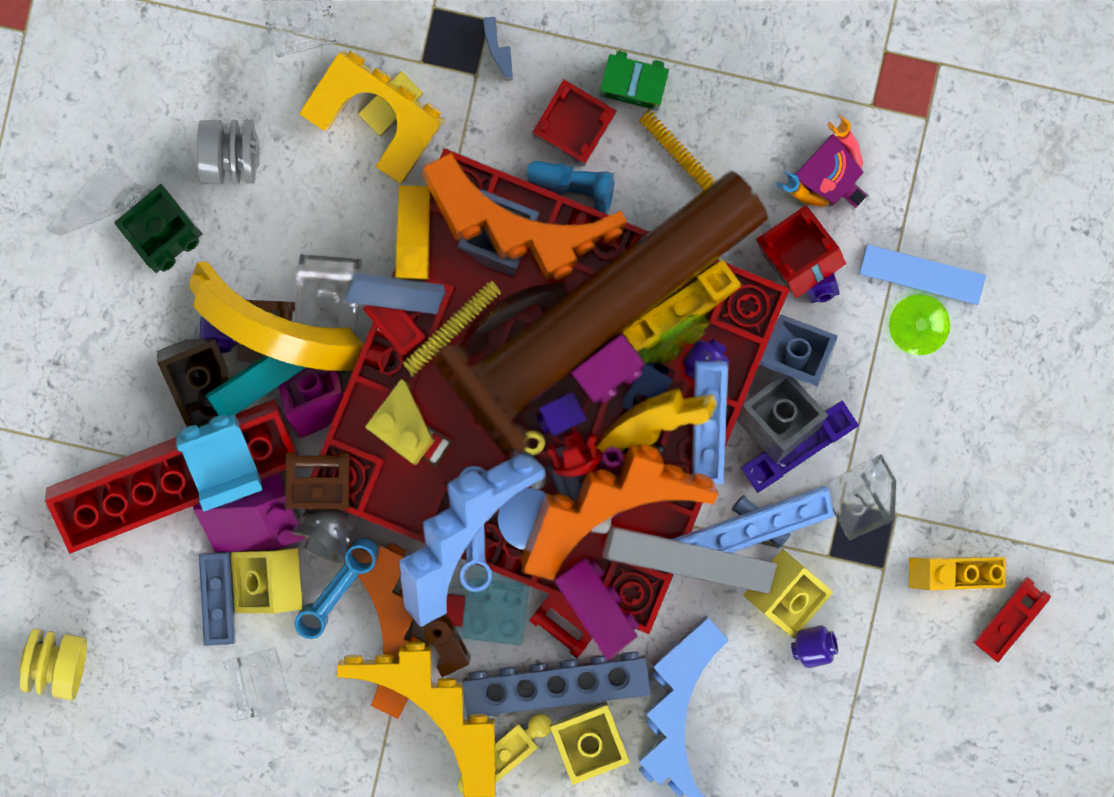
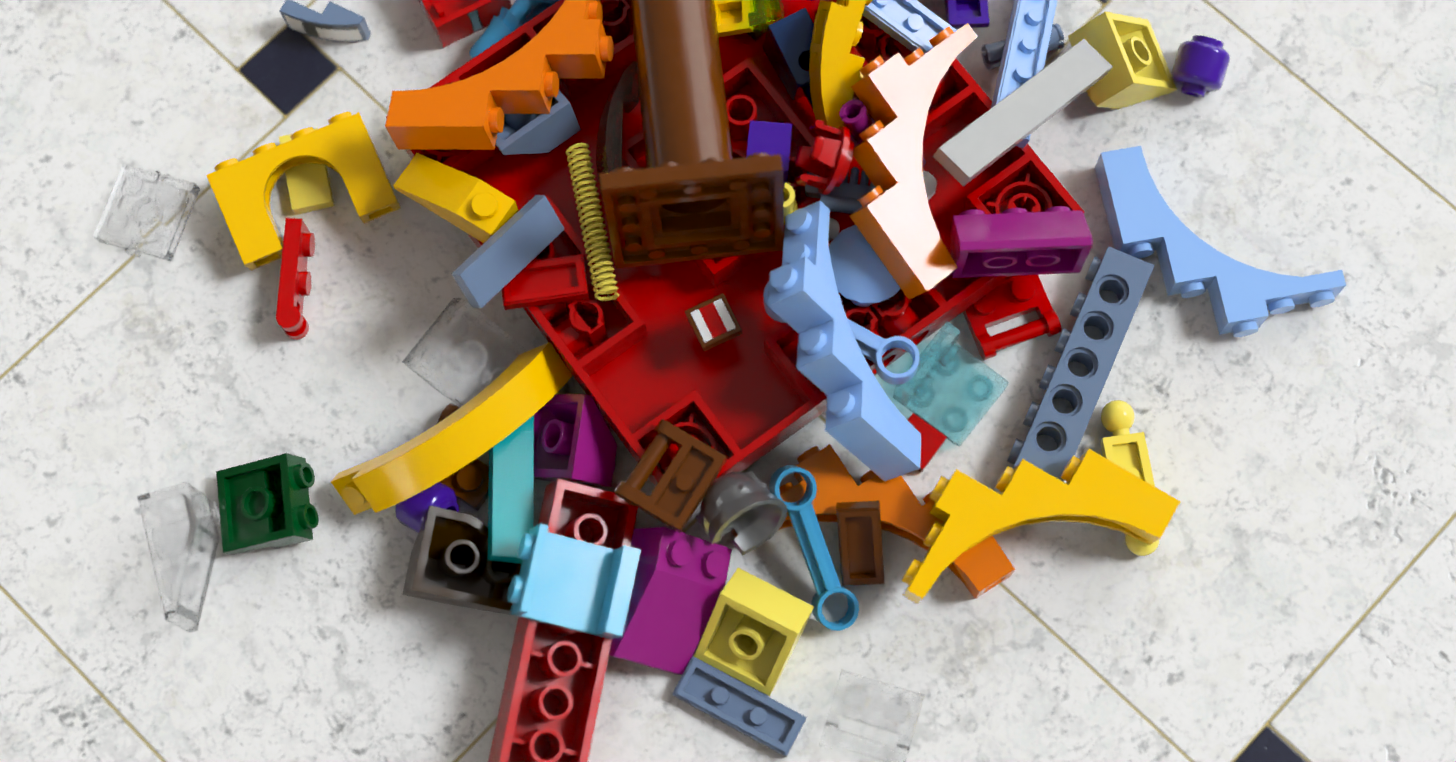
camera: 55 degrees left, 15 degrees down
(227, 151) = (230, 367): light grey wheel -> none
(312, 148) = (294, 278): none -> red plate
(358, 614) = (860, 543): none -> reddish brown tile
(402, 424) = (667, 338): light yellow wing -> none
(448, 644) = (945, 457): reddish brown leg -> none
(589, 743) = (1173, 367): light yellow brick -> none
(608, 369) = (750, 65): magenta brick -> none

